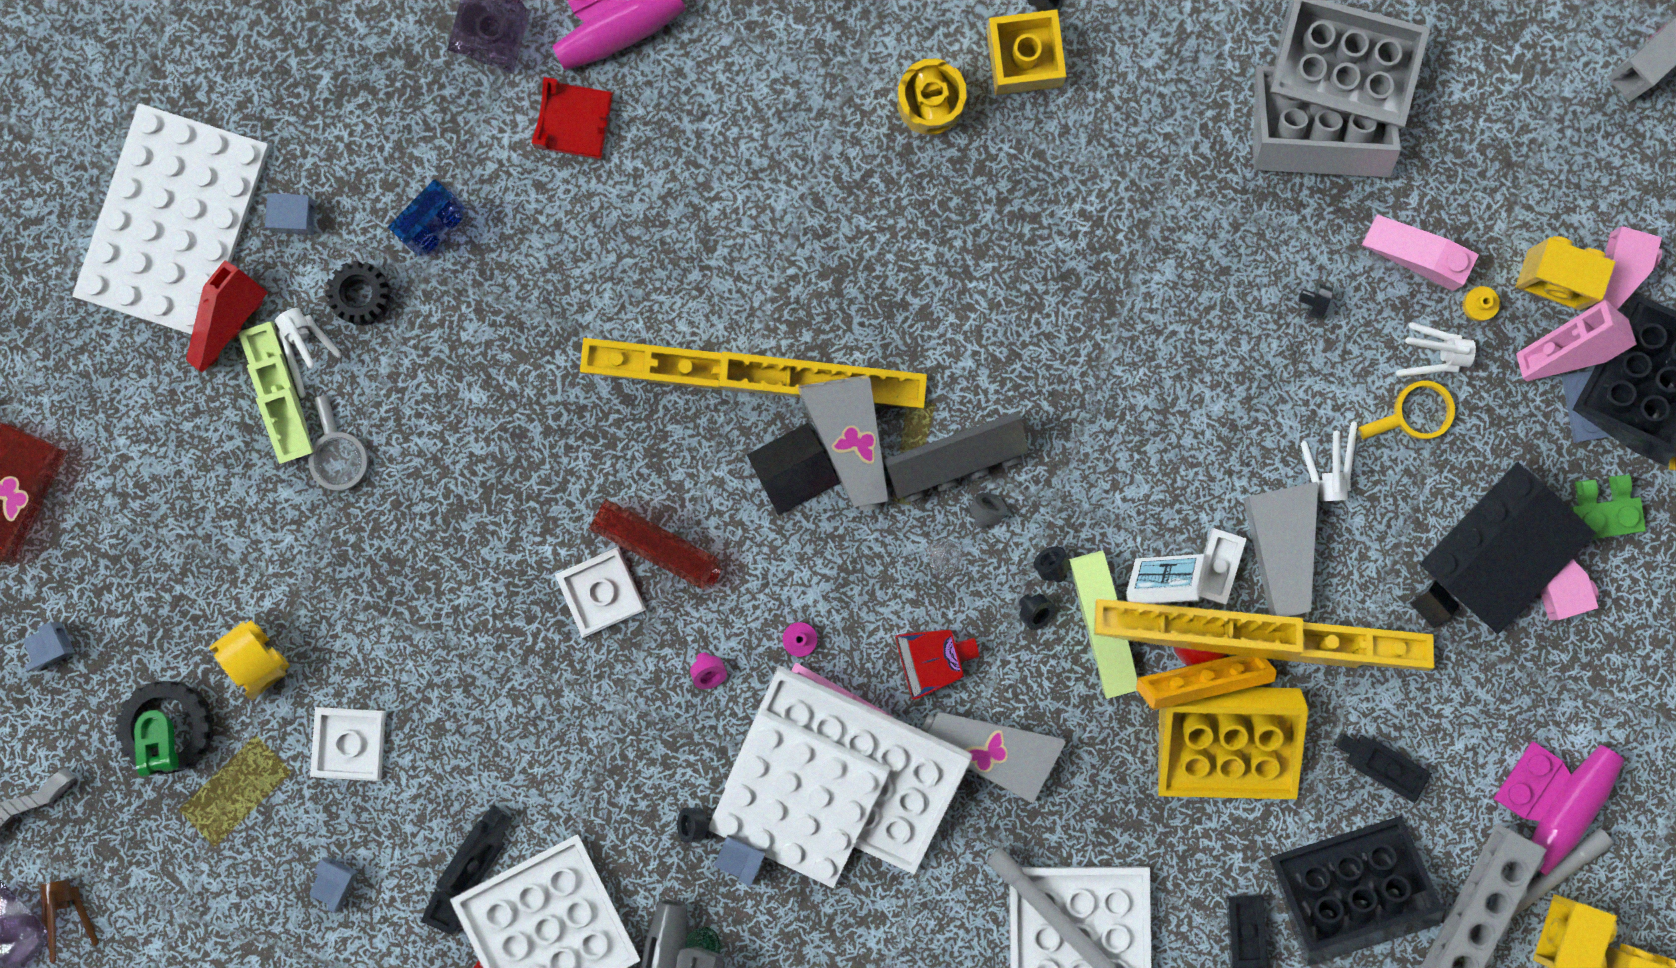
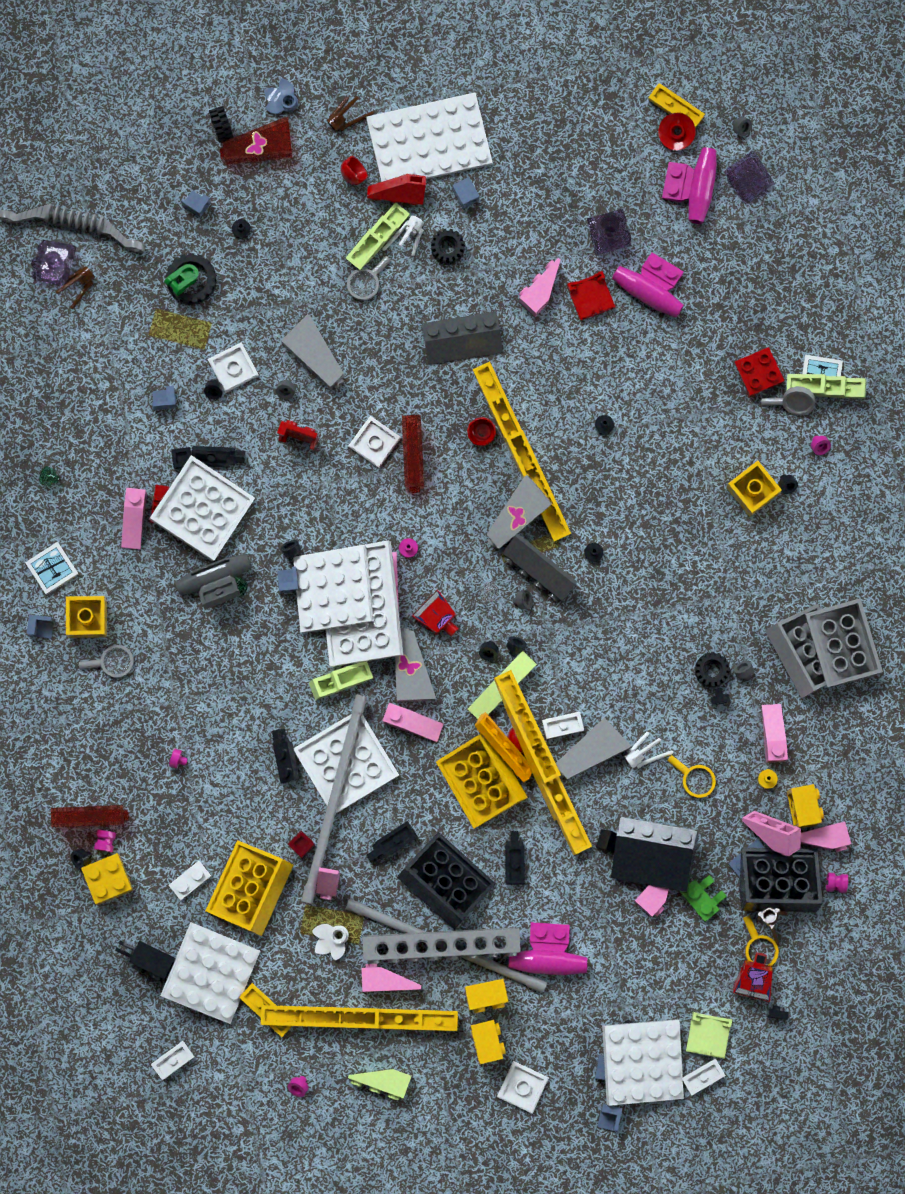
camera: 55 degrees right, 5 degrees down
(50, 345) = (336, 119): none -> reddish brown plant
(132, 599) = (239, 232): none -> black tile
(136, 369) = (350, 167): none -> red hair
(248, 659) = (246, 298): yellow brick -> none
(364, 796) = (213, 389): none -> black tile
(394, 605) = (312, 351): none -> light grey slope
(427, 218) = (502, 256): clear blue bracket -> none
(433, 682) = (285, 389): none -> dark grey tile
(501, 714) = (304, 434): none -> red piece
(518, 357) = (462, 337): none -> dark grey slope
(521, 198) = (539, 293): none -> bright pink slope
(680, 407) = (484, 427): none -> red hair
(708, 671) = (367, 513): dark pink tile -> none
(788, 228) = (604, 428): none -> black tile
(792, 469) = (487, 497): black slope -> none
(931, 96) = (704, 456): yellow brick -> none
(946, 870) = (340, 680): none -> yellowish green slope
(974, 365) = (593, 557): none -> black tile
(1078, 797) = (412, 722): none -> bright pink slope
(1166, 579) = (541, 700): tile -> none
(1280, 271) = (712, 658): none -> black tyre
(1295, 238) = (744, 670): none -> dark grey tile
(1454, 351) = (735, 779): white plant -> none

